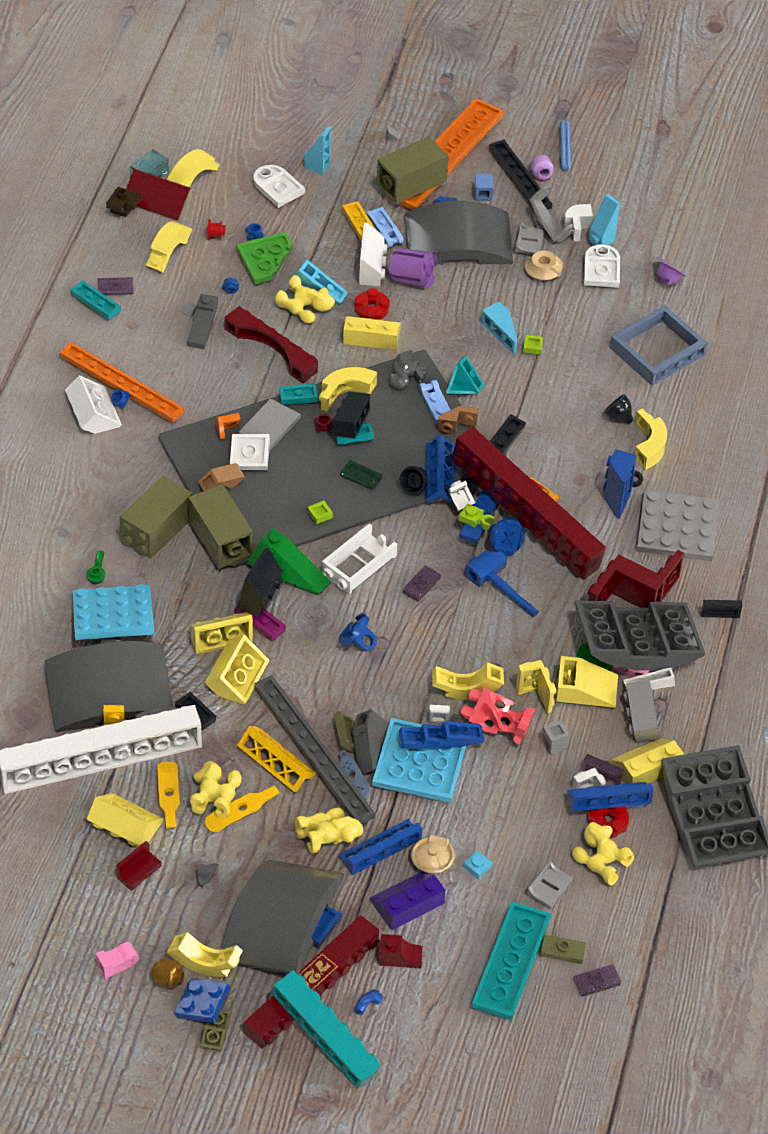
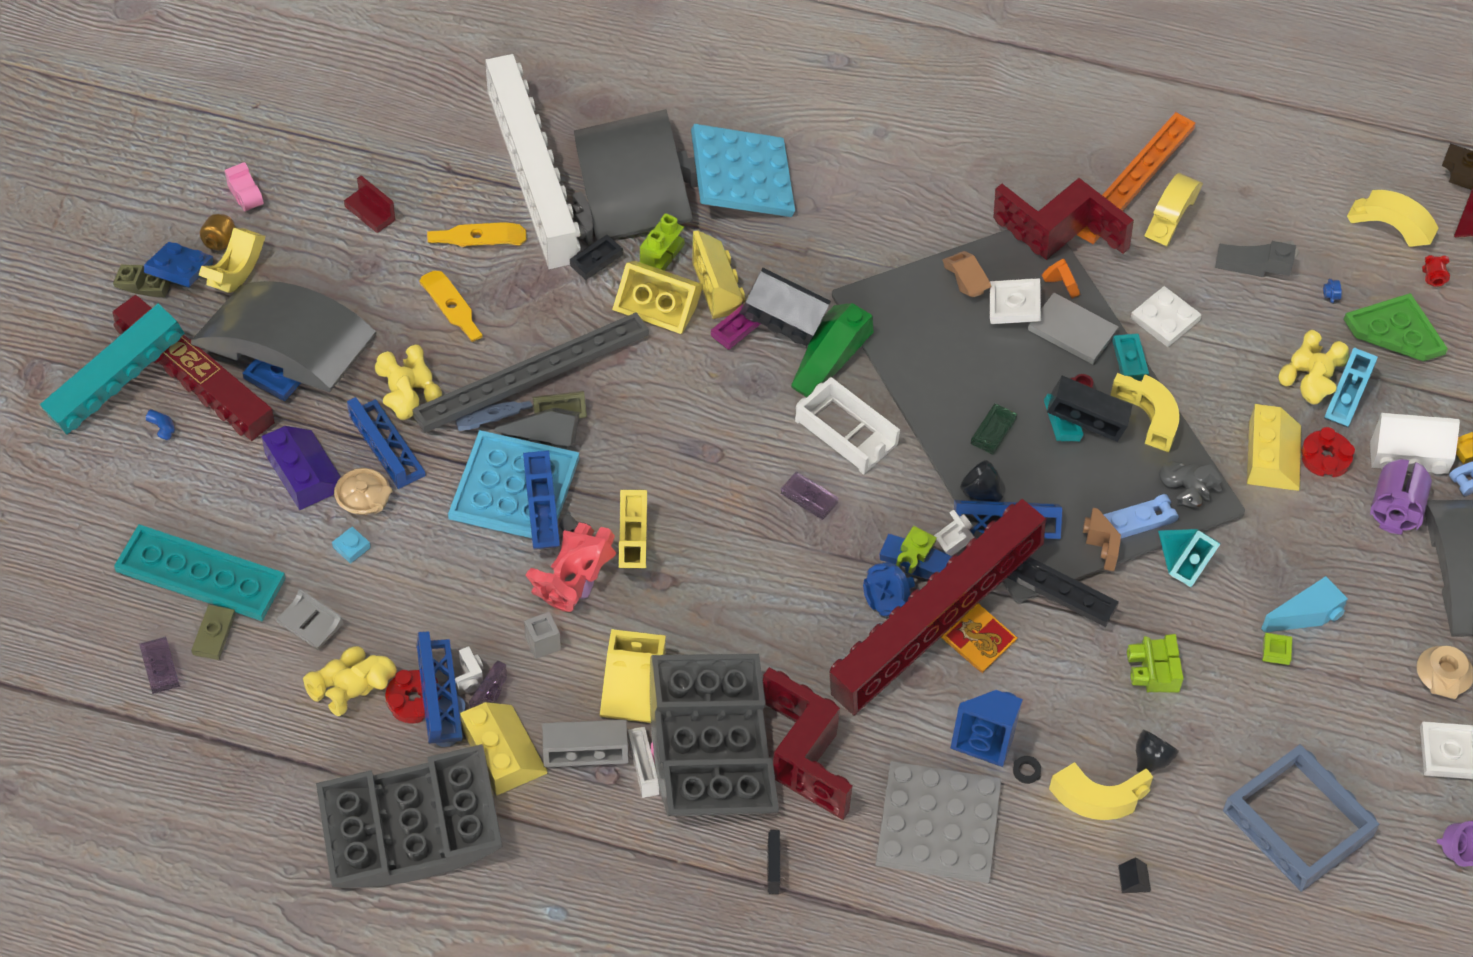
camera: 90 degrees right, 5 degrees up
(92, 406) = (1087, 149): white slope -> none
(95, 300) = (1278, 148): teal plate -> none
(96, 574) = (813, 161): green plate -> none
(113, 714) = (570, 164): yellow plate -> none
(116, 286) = (1309, 168): clear purple plate -> none
(120, 398) = (1105, 175): blue plate -> none
(124, 819) = (439, 191): light yellow slope -> none
(155, 517) = (895, 206): olive brick -> none
(157, 354) = (1176, 198): none -> light yellow arch
(178, 415) = (1063, 218): none -> dark red bracket
(187, 665) = (662, 243): none -> lime hips
(205, 873) = (356, 269): dark grey piece -> none
(211, 791) = (472, 272): light yellow animal -> none
(220, 526) = (876, 263): olive brick -> none
(246, 326) = (1196, 361): dark red arch -> none
(252, 377) = (1165, 316): none -> white plate
(254, 231) = (1446, 317): blue plate -> none
(282, 754) = (526, 336): yellow fence -> none
(320, 512) = (919, 378): lime plate -> none
(356, 631) = (713, 415): blue tile -> none
(399, 953) = (223, 453): dark red arch -> none
(439, 713) = (585, 505): white tile -> none
(486, 568) = (833, 565): blue piece -> none
(534, 677) = (624, 615): light yellow bracket -> none
(550, 404) = (1160, 664): none -> lime hips
(707, 430) = (1134, 876): none -> black slope

